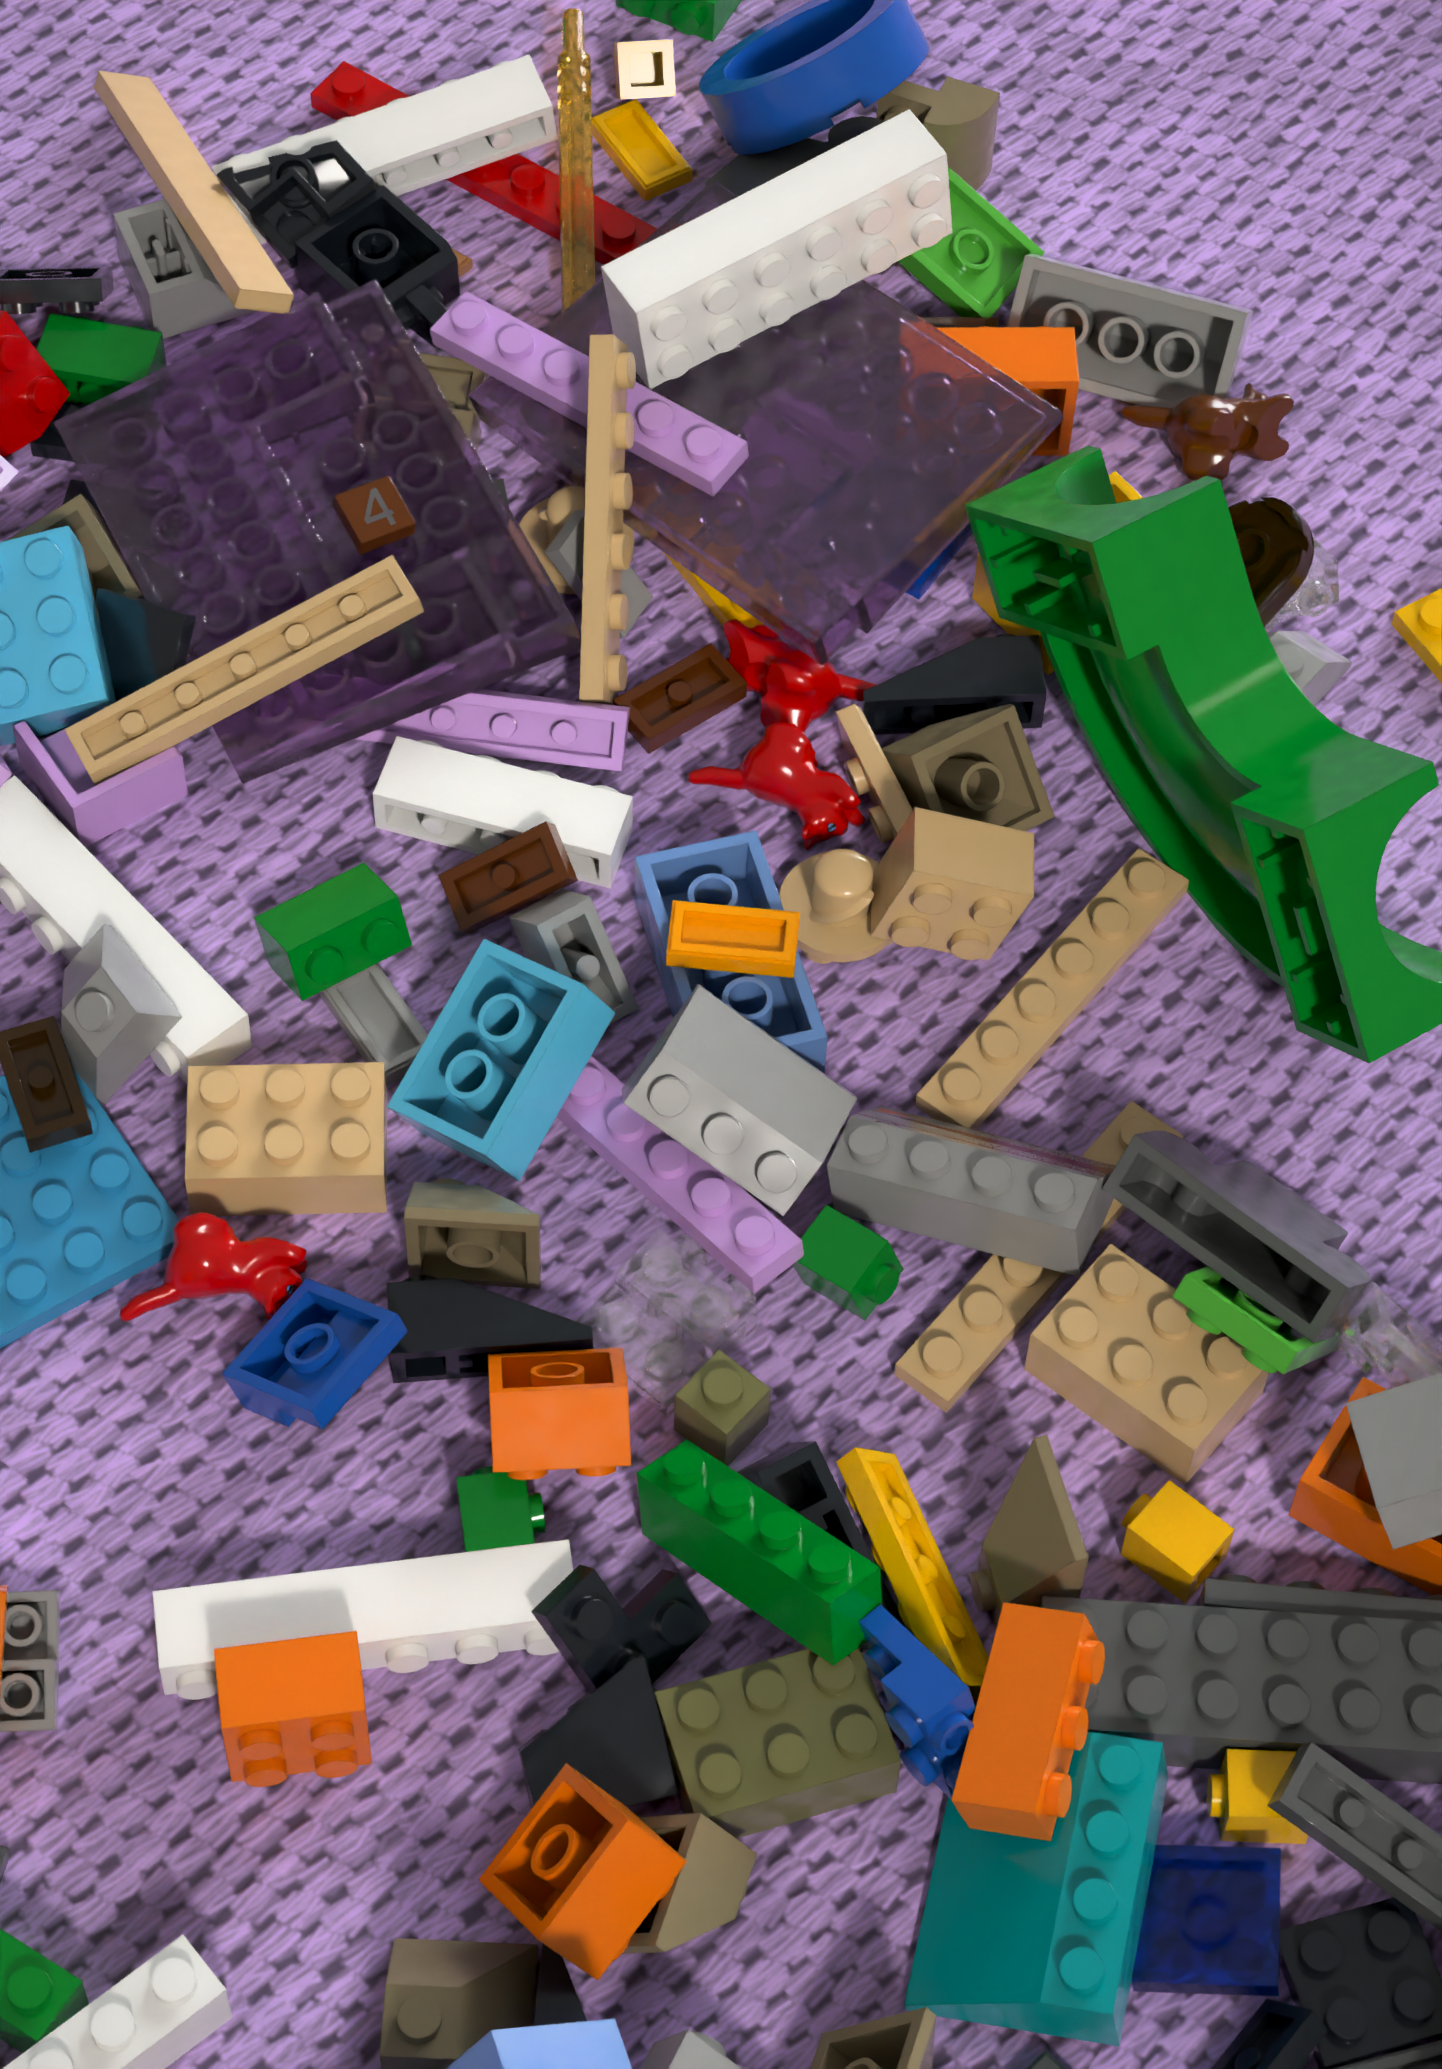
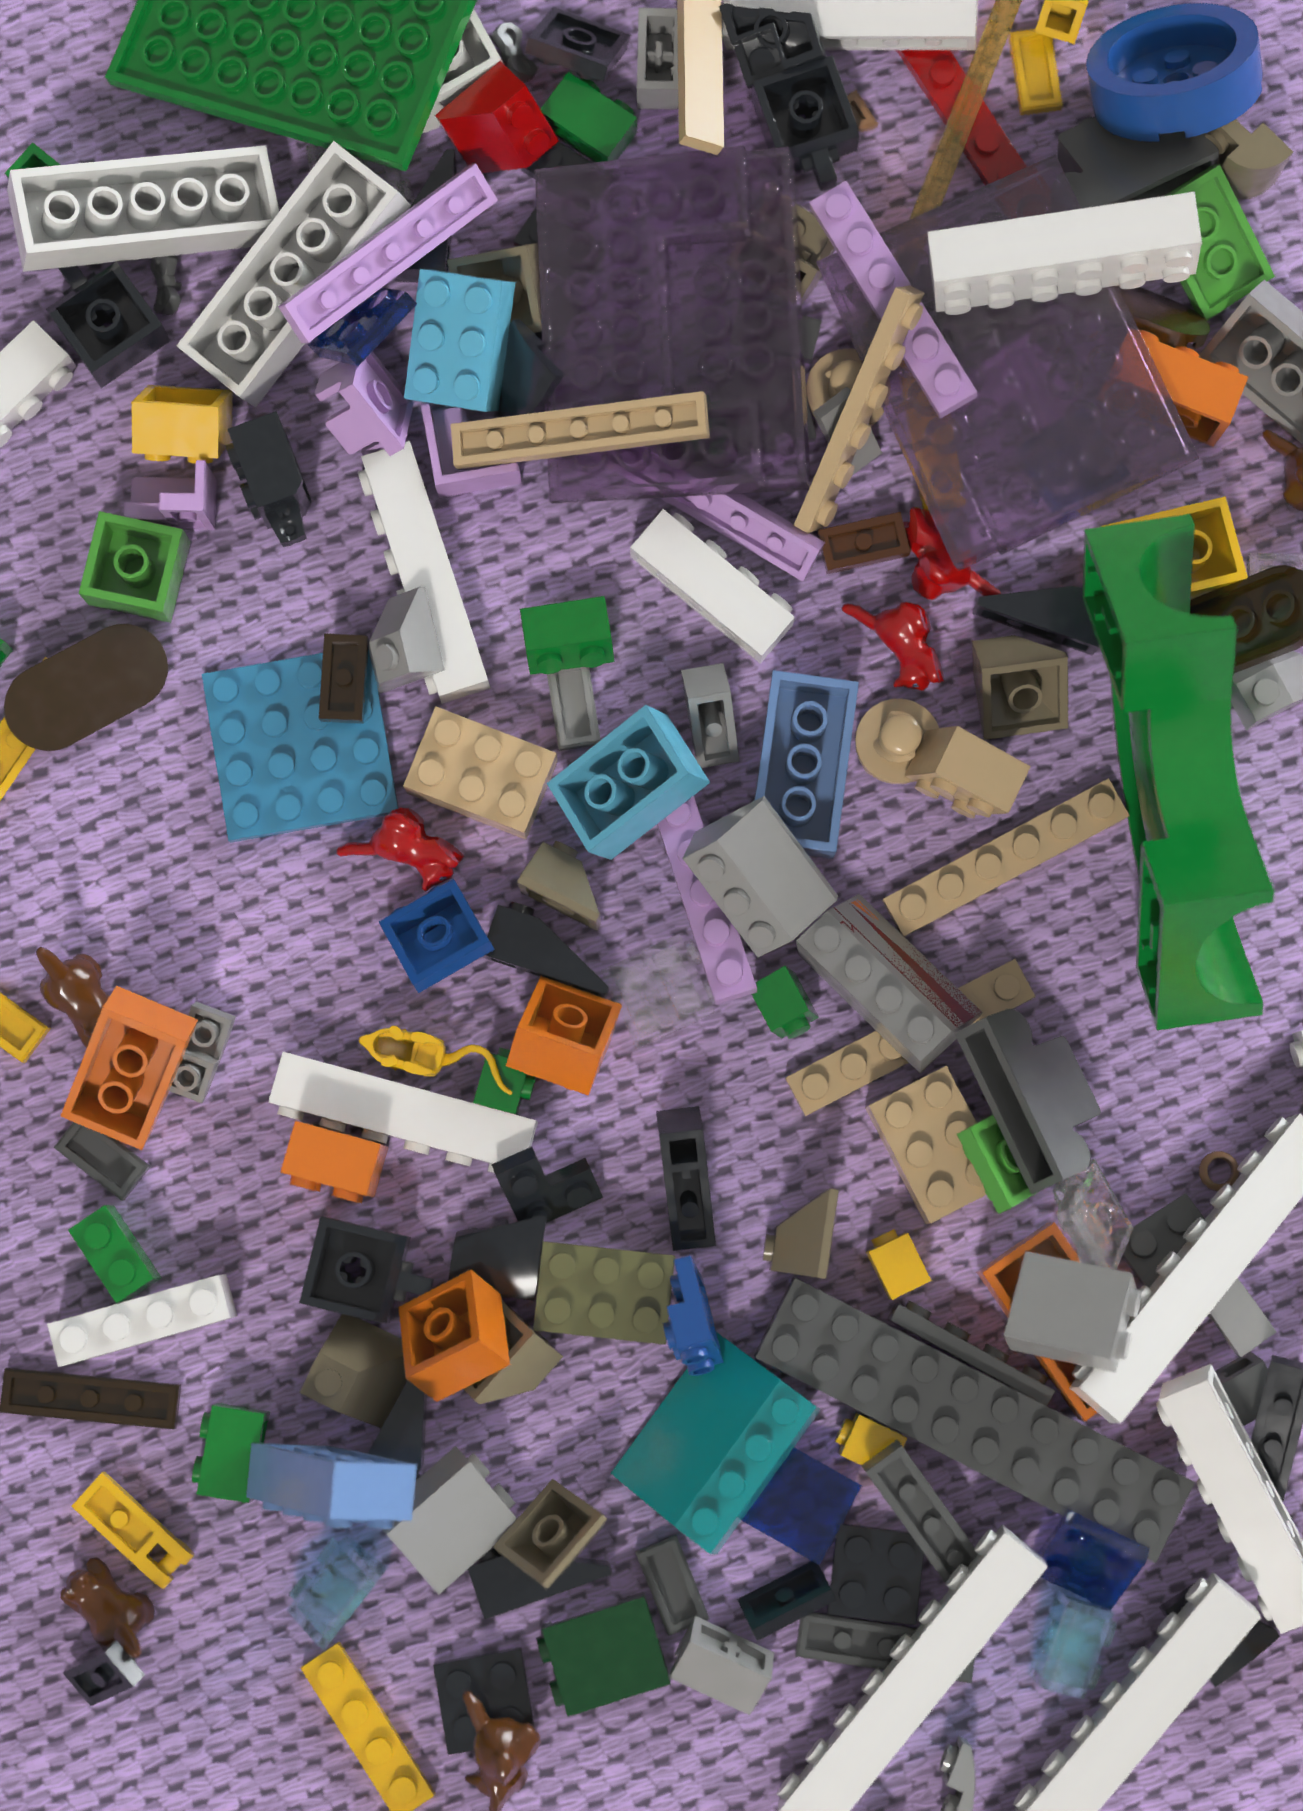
camera: 25 degrees right, 25 degrees up
(356, 1524) = (420, 1052): none -> yellow animal
(374, 515) = (708, 345): reddish brown tile -> none
(434, 1845) = (386, 1276): none -> black hinge
(508, 877) = (692, 641): reddish brown plate -> none
(722, 1408) = (666, 1067): olive brick -> none
(733, 939) = (806, 759): light orange tile -> none
(758, 1550) = (641, 1179): green brick -> none
(872, 774) = (959, 653): tan plate -> none
(913, 1563) = (735, 1221): yellow plate -> none
(1028, 1722) = (744, 1363): orange brick -> none

